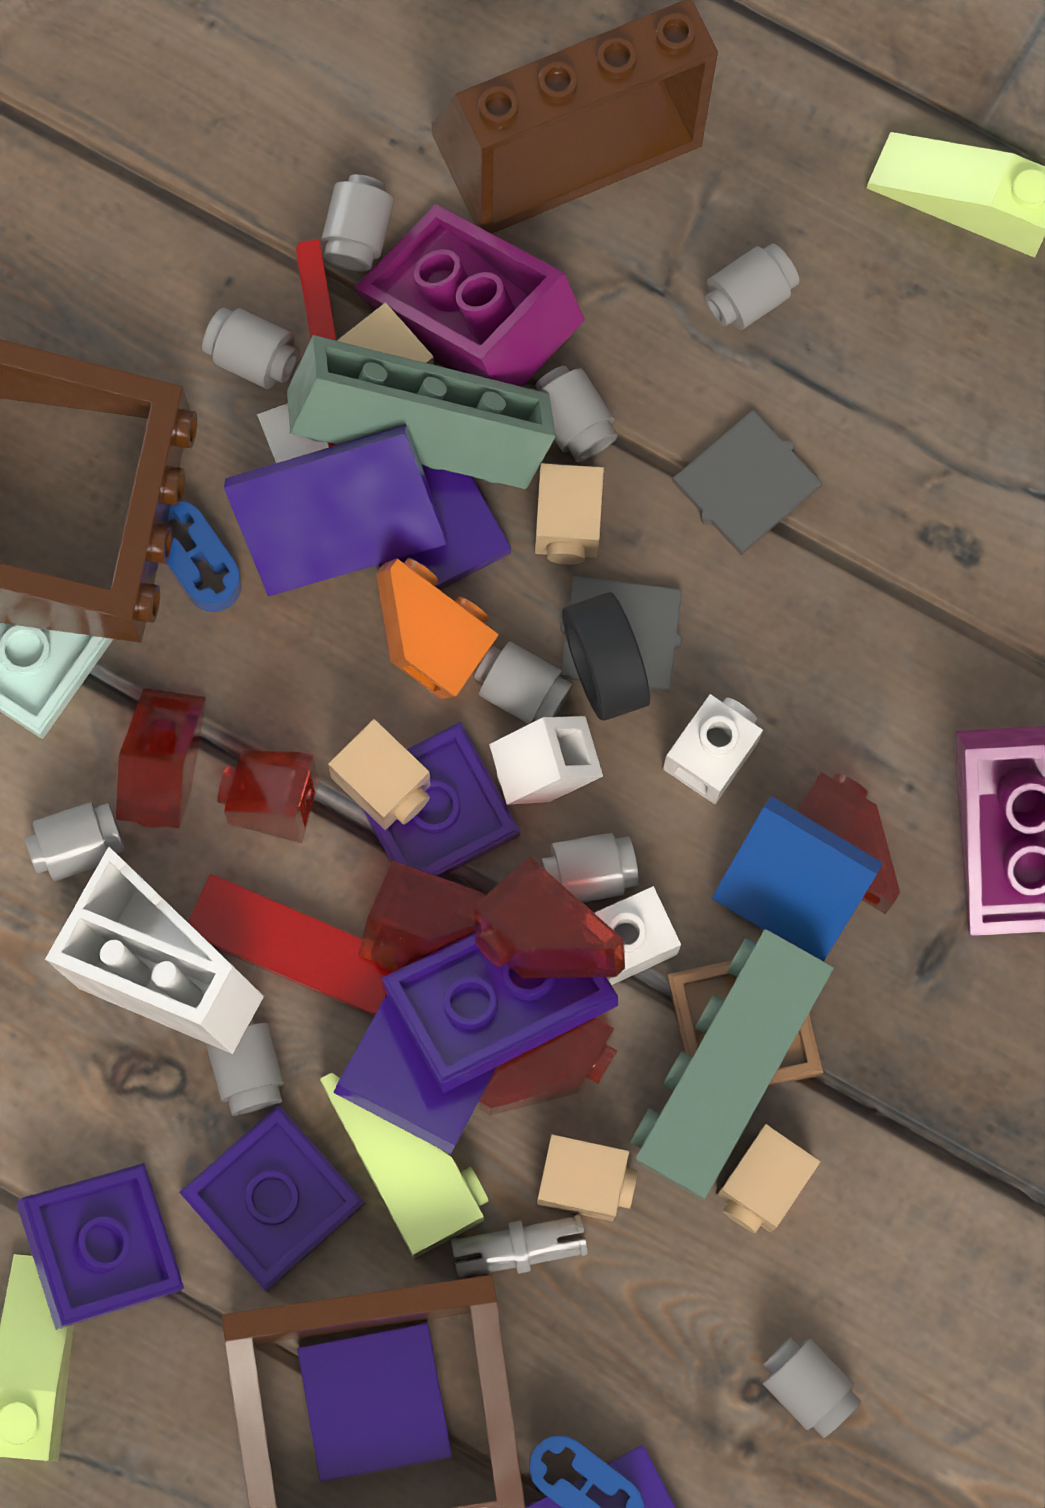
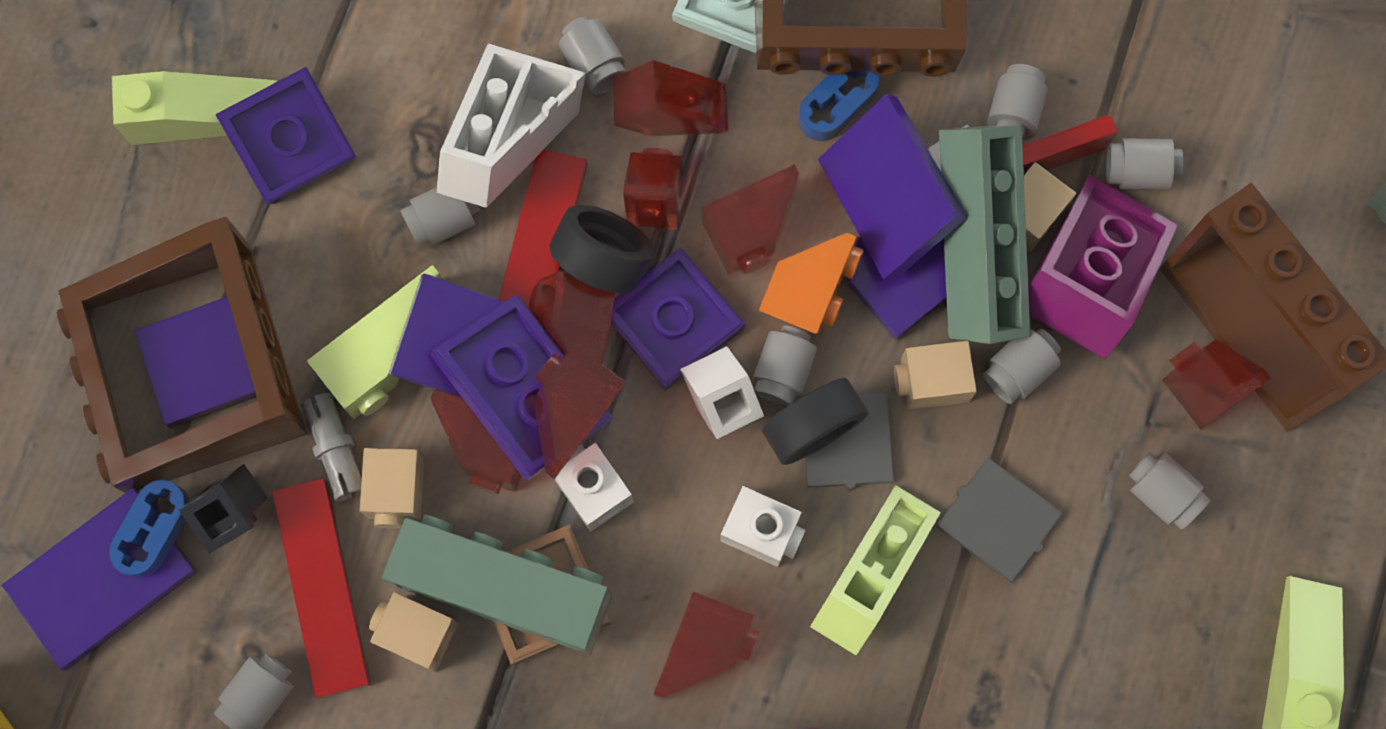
camera: 85 degrees right, 0 degrees up
(272, 1198) = (346, 256): dark purple tile -> none
(336, 685) = (750, 221): none -> clear red slope
(341, 868) = (601, 249): none -> black tyre
(381, 776) = (681, 265): tan brick -> none
(578, 1386) = (224, 508): none -> black brick
(593, 866) = (642, 446): light grey brick -> none
(639, 205) = (1212, 380): none -> clear red slope
(690, 1289) = (321, 588): none -> red tile
(788, 629) = (875, 570): none -> yellowish green slope
(796, 879) = (660, 611): blue tile -> none

